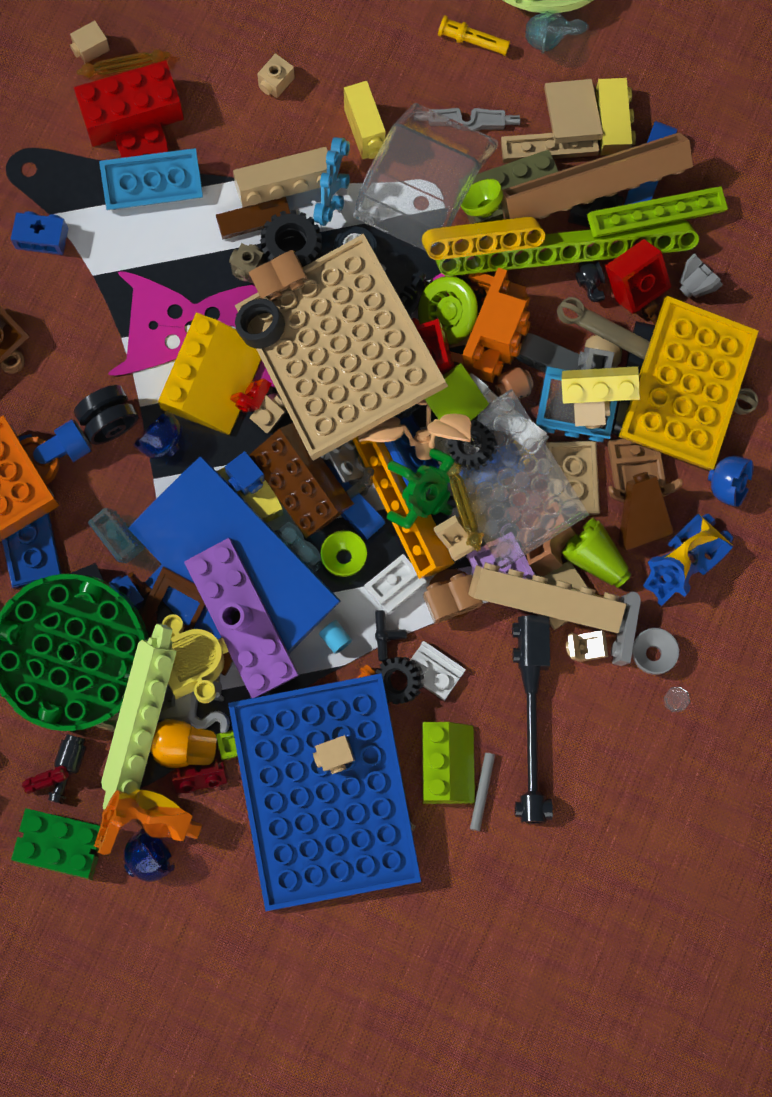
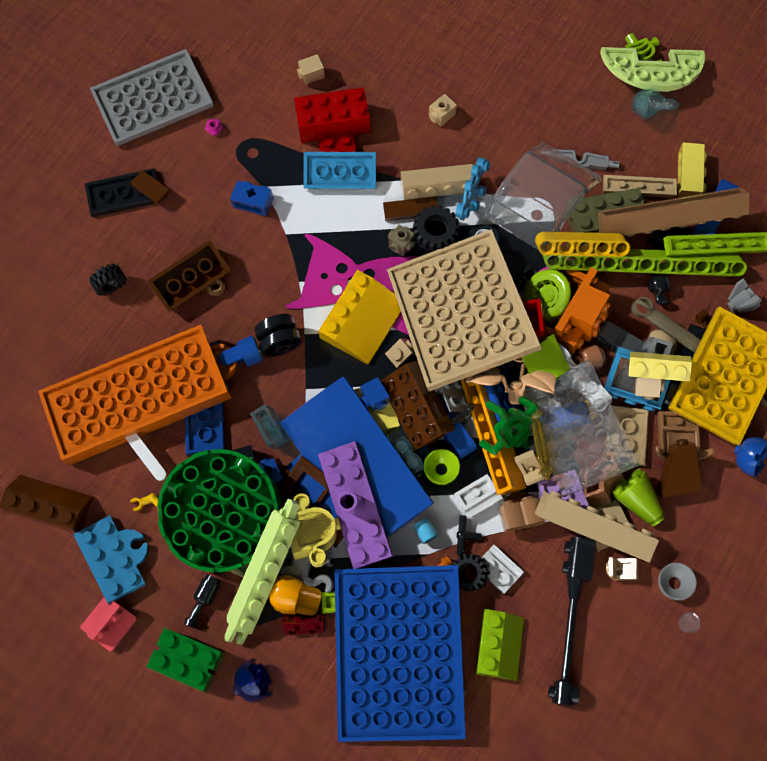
camera: 15 degrees right, 5 degrees down
(45, 779) = (184, 607): dark red axle -> none
(122, 63) = (330, 87): clear yellow wheel -> none
(155, 812) = (263, 646): orange hips -> none
(160, 437) = (316, 358): clear blue cylinder -> none
(251, 310) = (398, 274): black tyre -> none
(254, 396) = (390, 338): red bracket -> none
(278, 276) = (422, 251): medium nougat brick -> none
(334, 754) = (411, 624): tan brick -> none
(364, 119) = (503, 147): light yellow brick -> none
(462, 32) = (584, 97): yellow pin -> none
(479, 458) = (558, 408): black tyre -> none
(482, 792) = (524, 672): light grey bar -> none
(483, 198) = (585, 215): lime piece -> none
(573, 111) = (660, 163): tan tile -> none
(623, 646) = (651, 573): light grey plate -> none
(638, 276) = (697, 289): red brick -> none
(688, 557) = (711, 512): blue hips -> none

